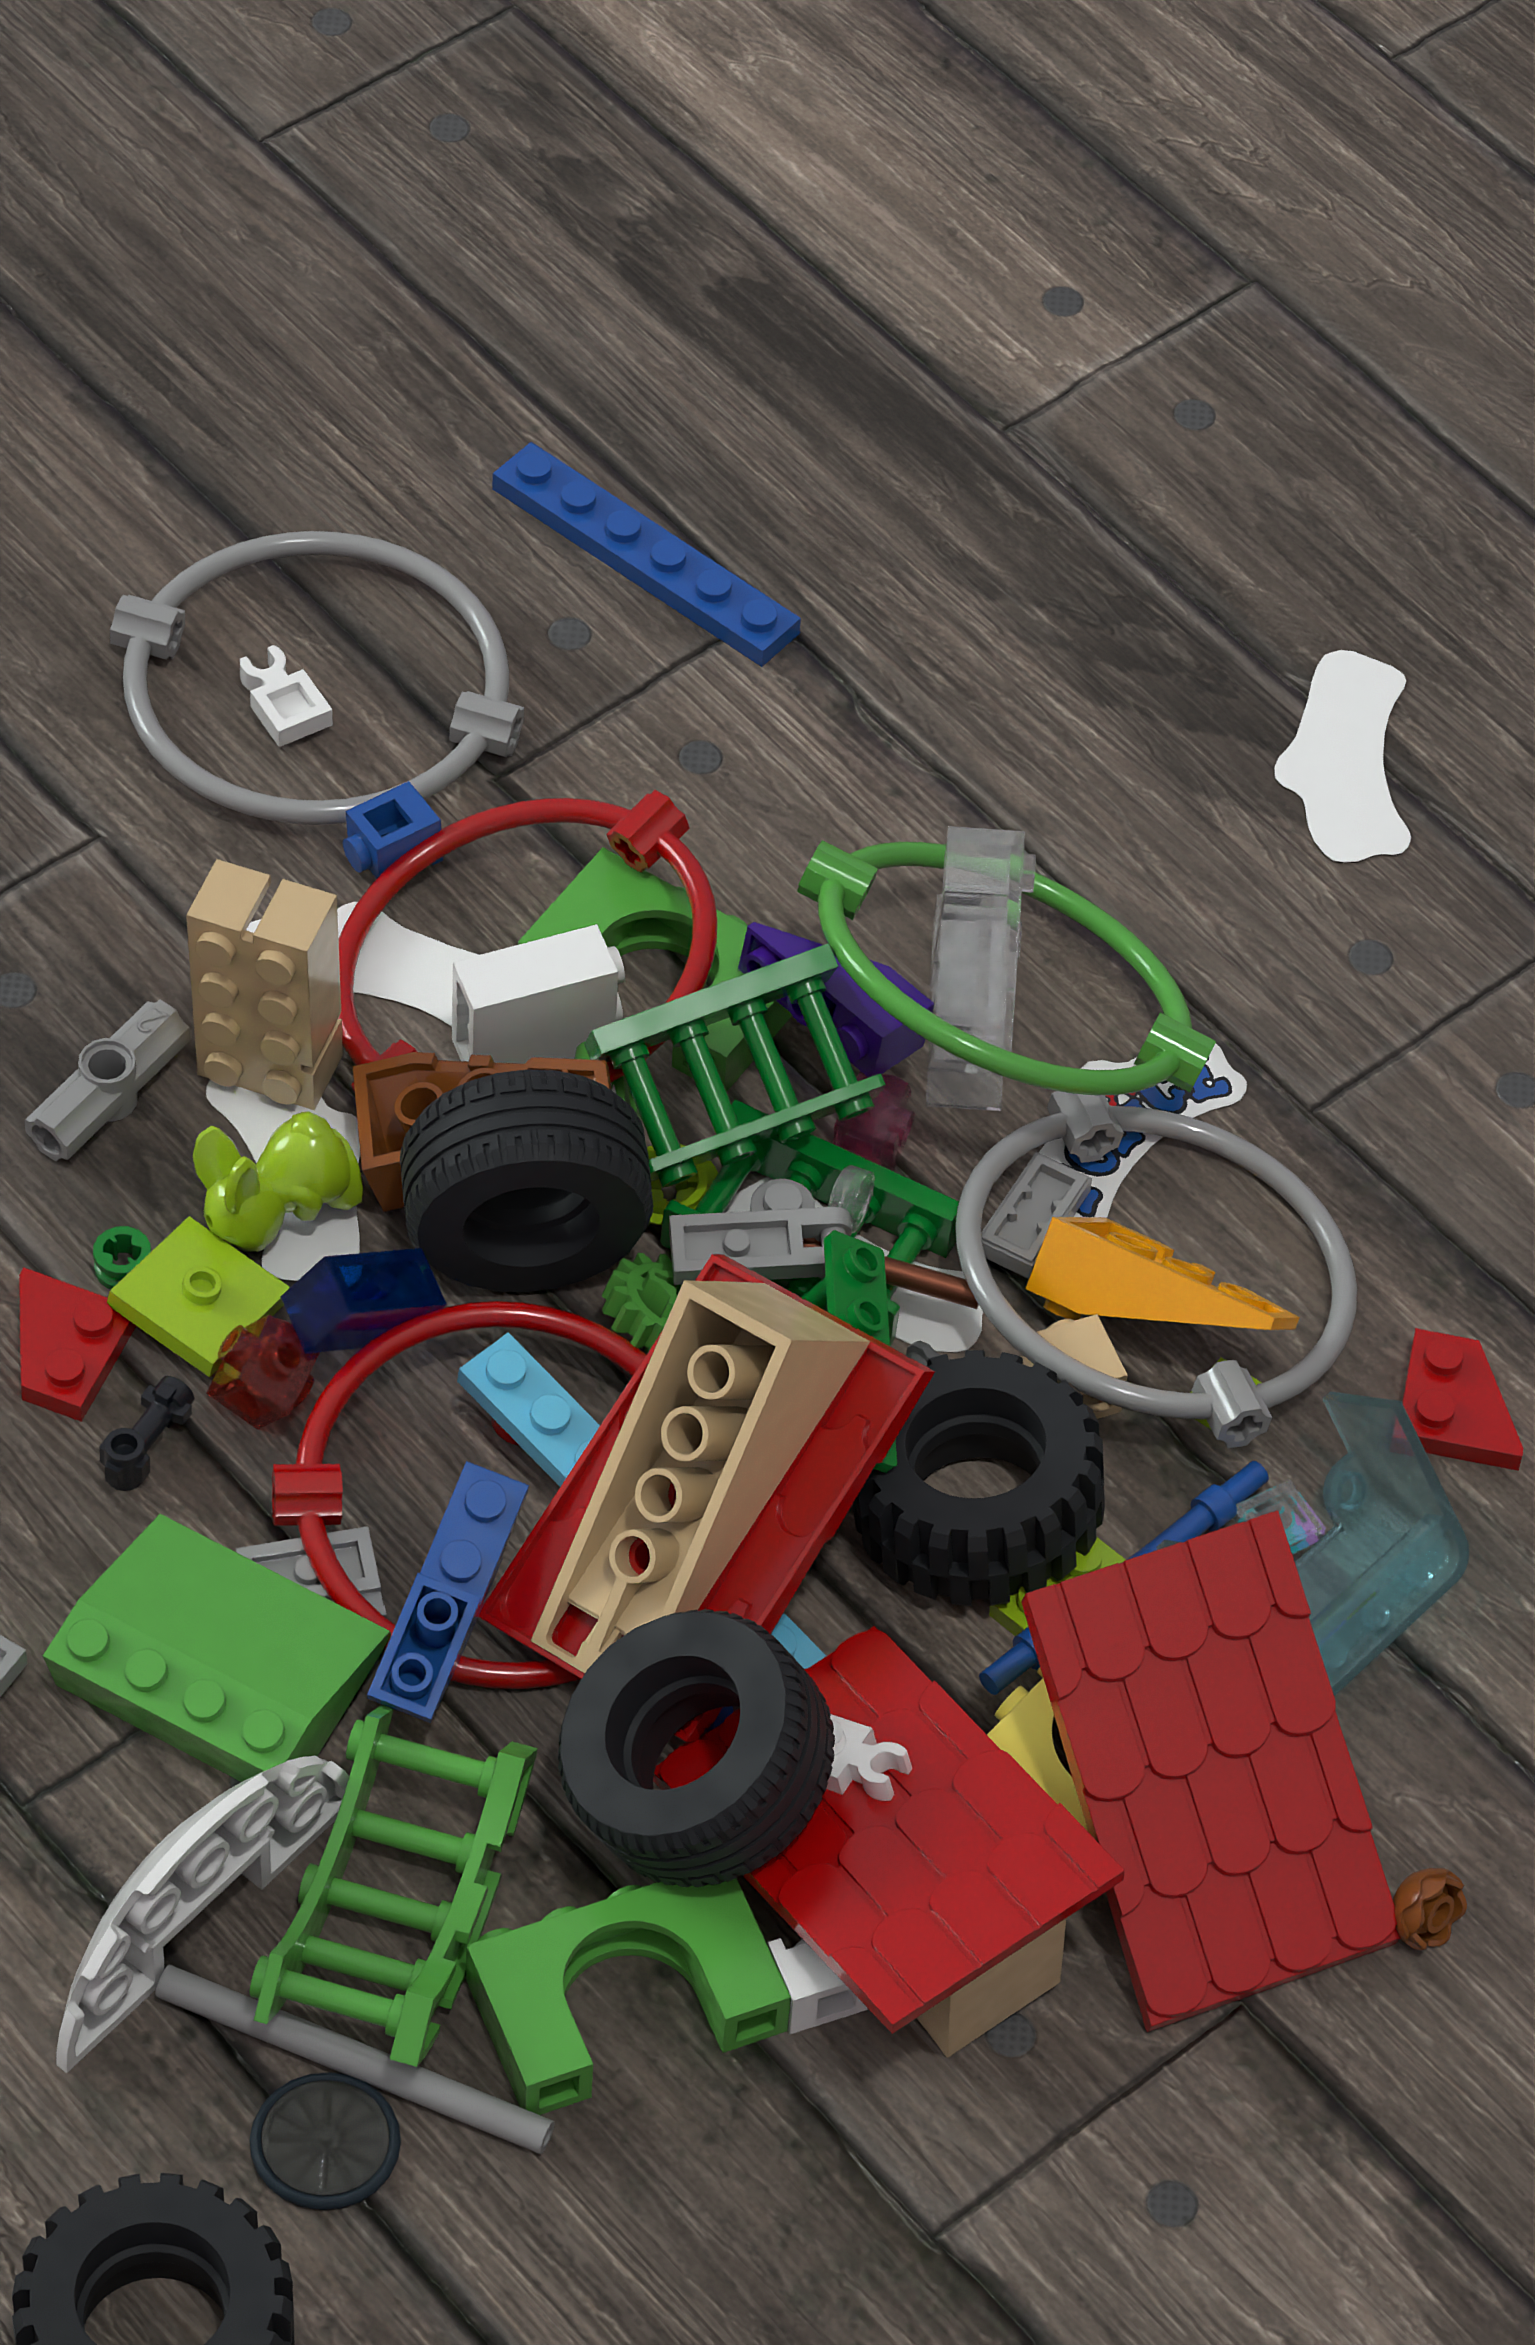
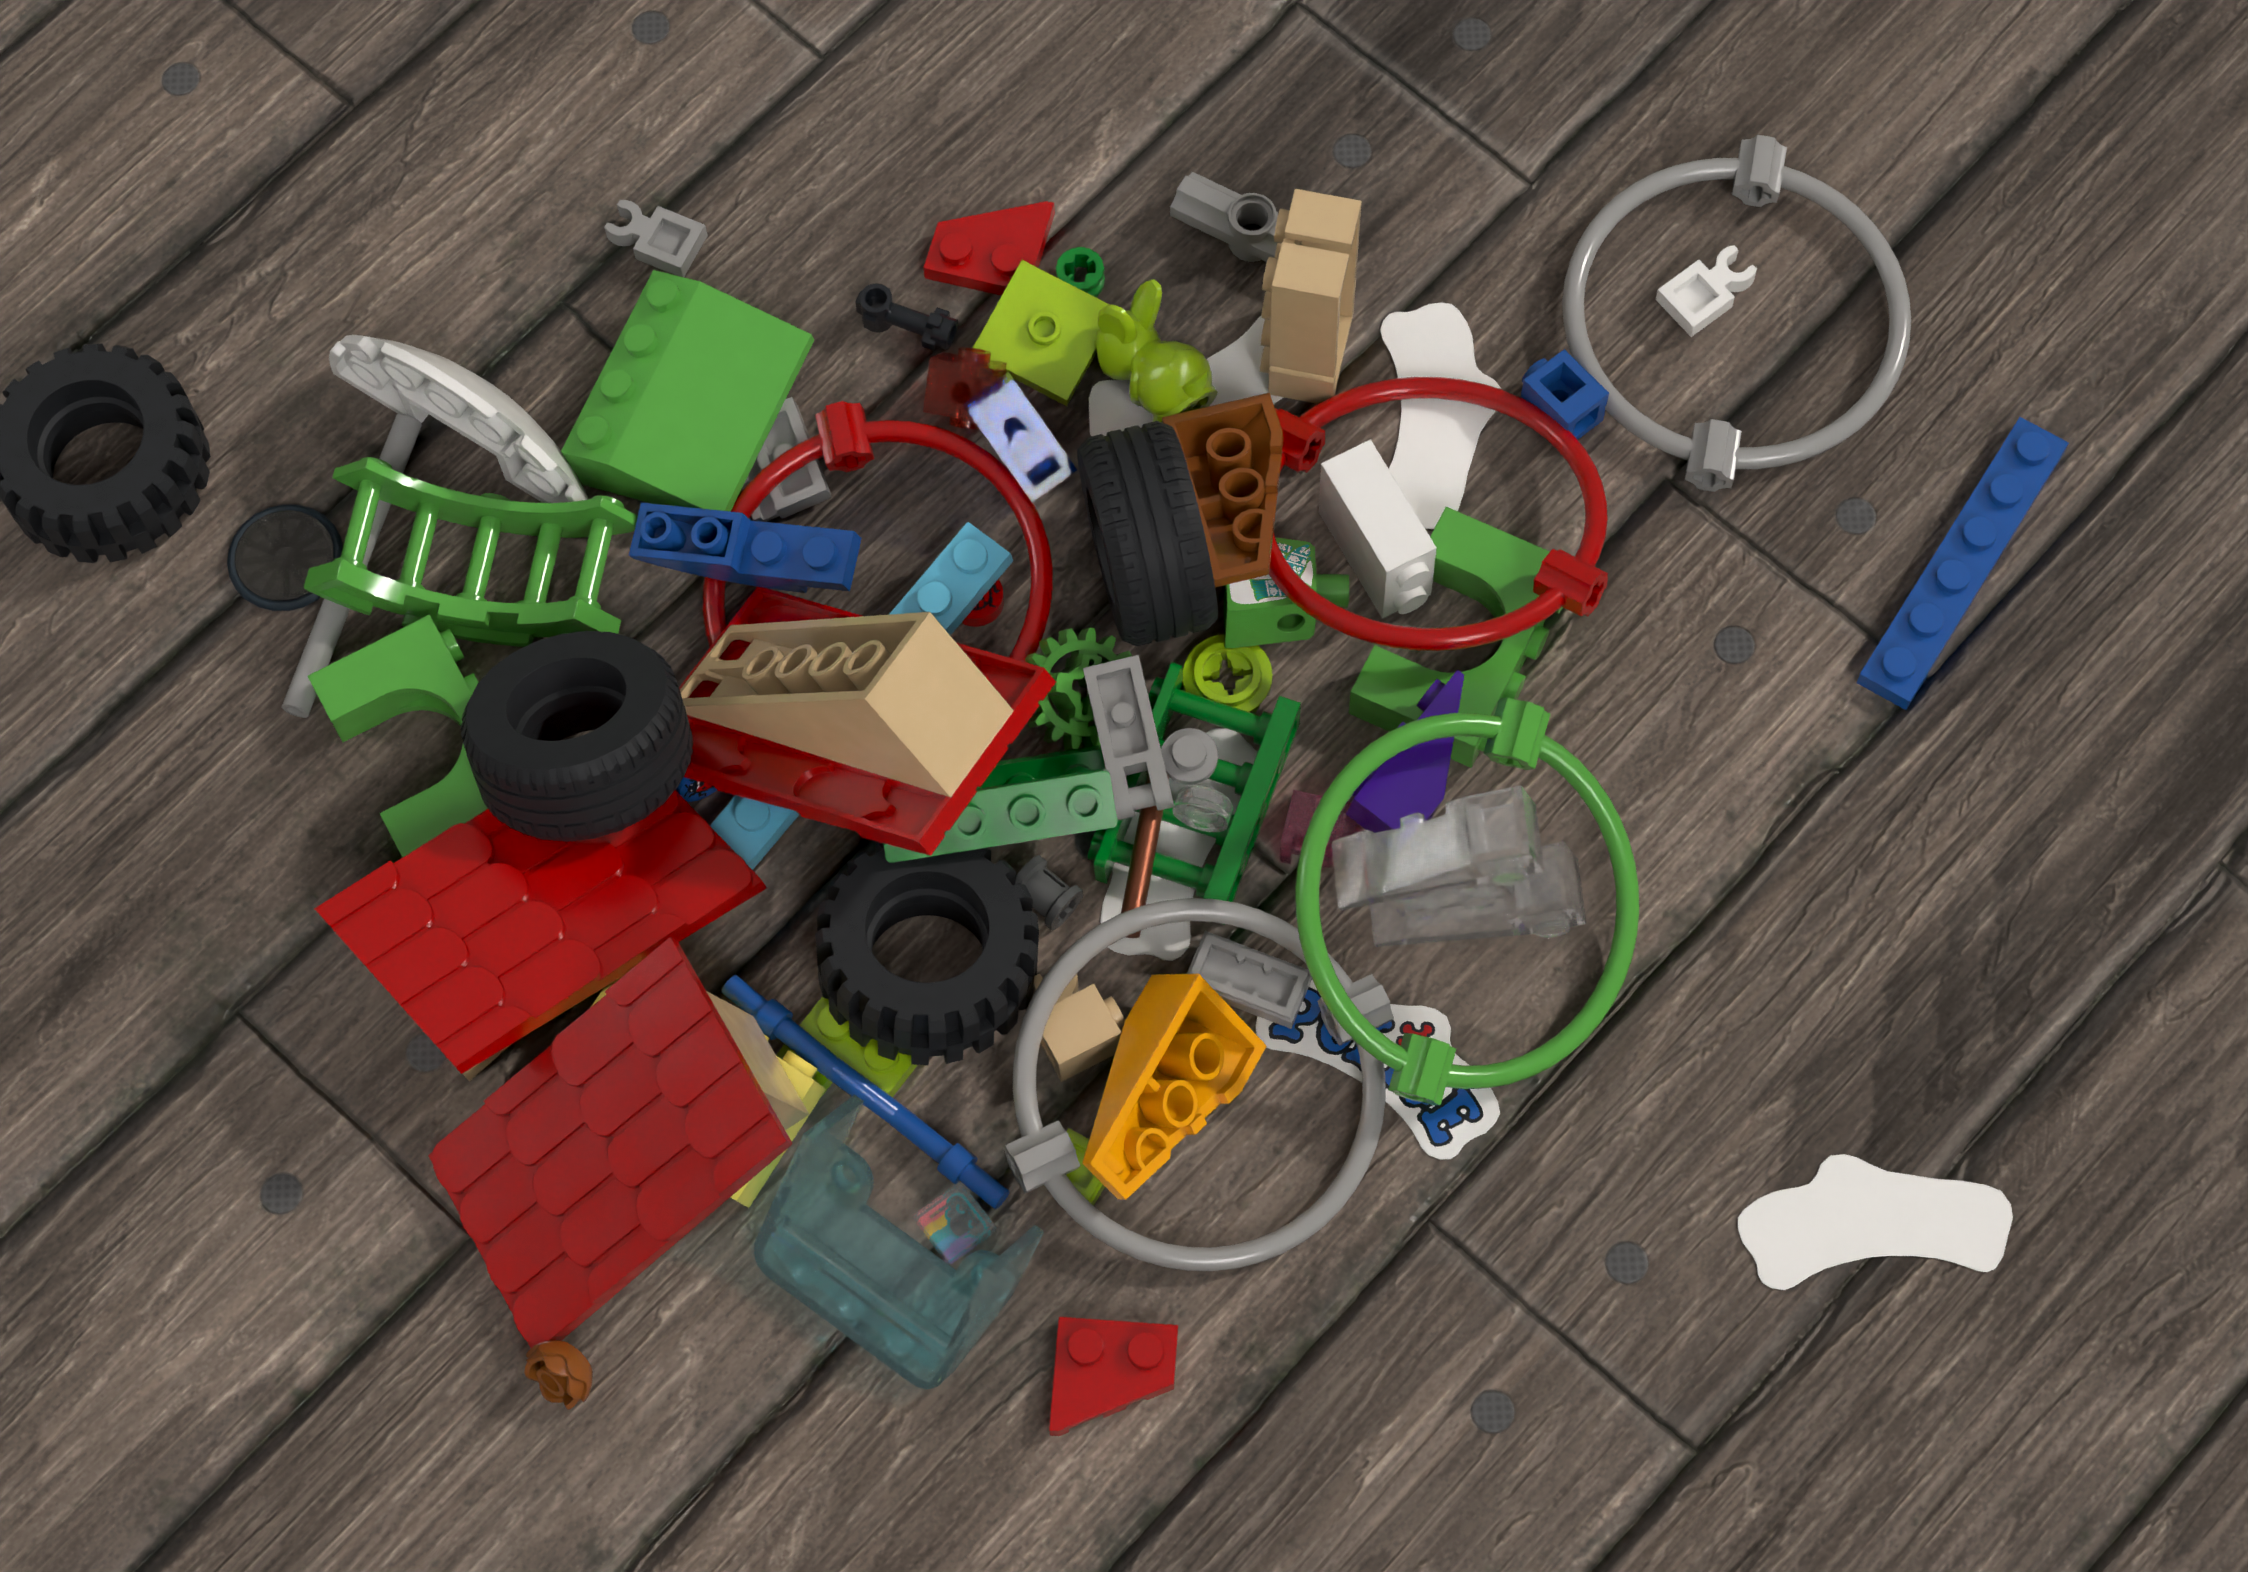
camera: 90 degrees right, 15 degrees up
(744, 1002) = (1352, 672): green fence -> none
(863, 1760) = (602, 859): white plate -> none

